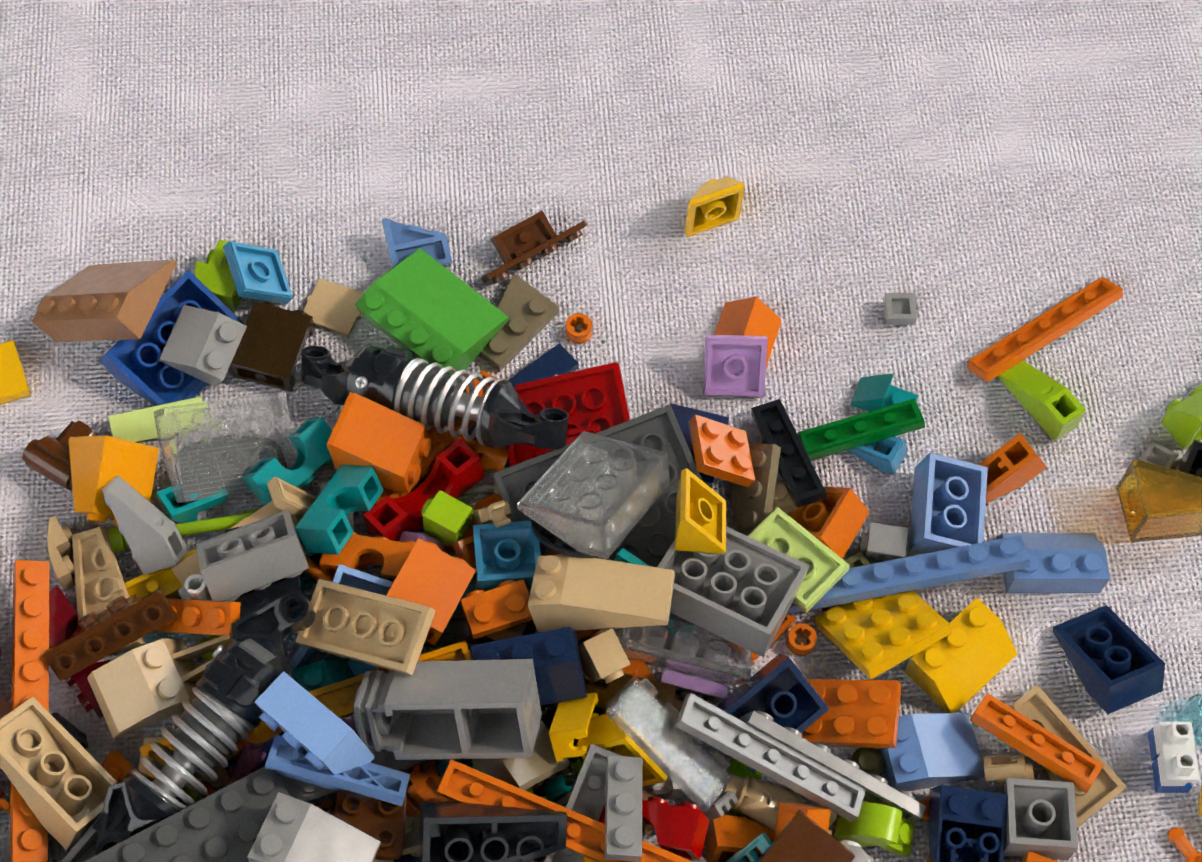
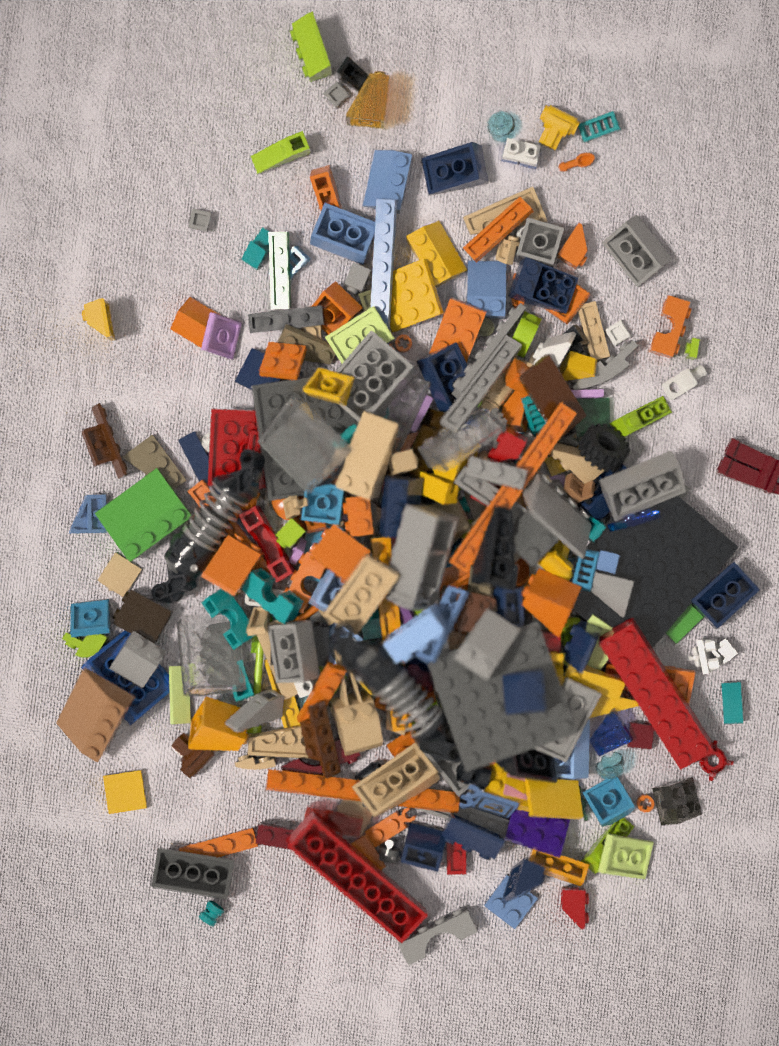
camera: 70 degrees left, 25 degrees up
(586, 332) = (170, 431): orange bush -> none
(1044, 329) = (233, 132): orange tile -> none

